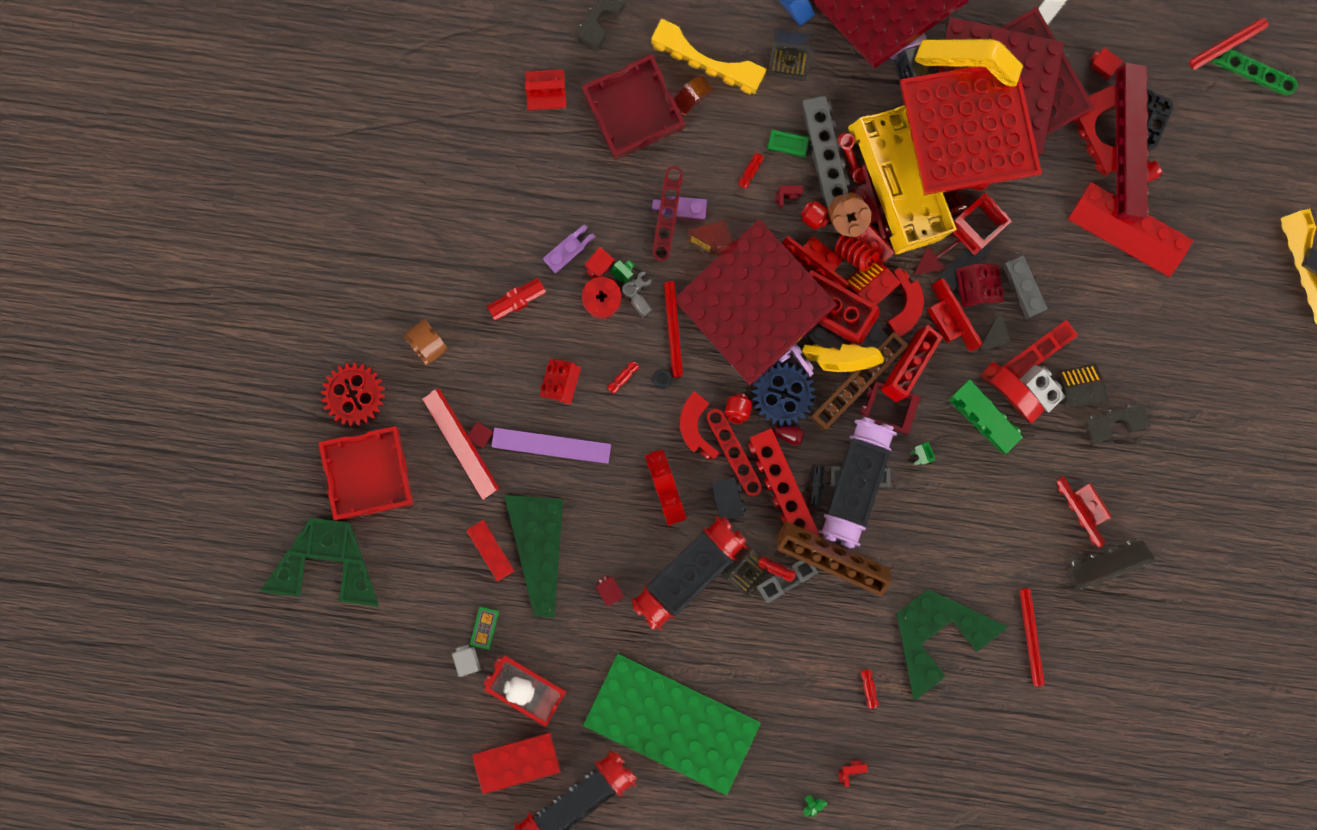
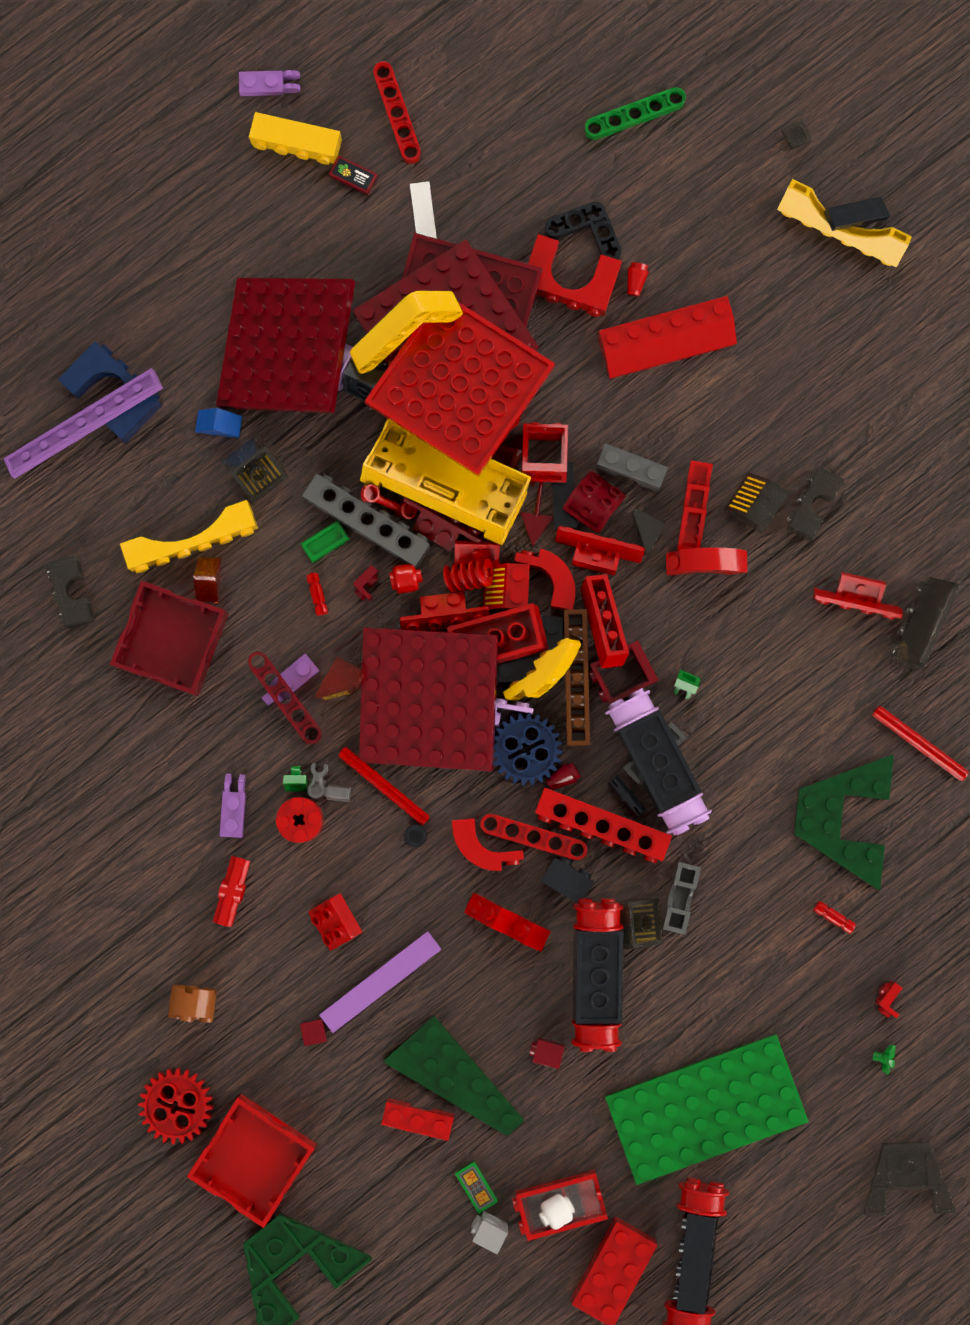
camera: 35 degrees left, 0 degrees up
(460, 443) = (305, 1056): tile -> none
(545, 89) = (83, 695): red bracket -> none
(599, 263) = (270, 794): red brick -> none
(623, 377) = (382, 866): red axle -> none
(738, 408) = (501, 797): red head -> none
(777, 569) = (664, 898): red axle -> none
(834, 559) = (701, 843): reddish brown brick -> none
(850, 225) = (423, 544): dark orange brick -> none
(985, 417) = (705, 604): green wedge -> none
(1042, 388) = (727, 533): light grey brick -> none
(1105, 63) = (514, 224): red brick -> none
(1131, 143) = (600, 266): dark red brick -> none
(1228, 43) = (595, 111): red axle -> none

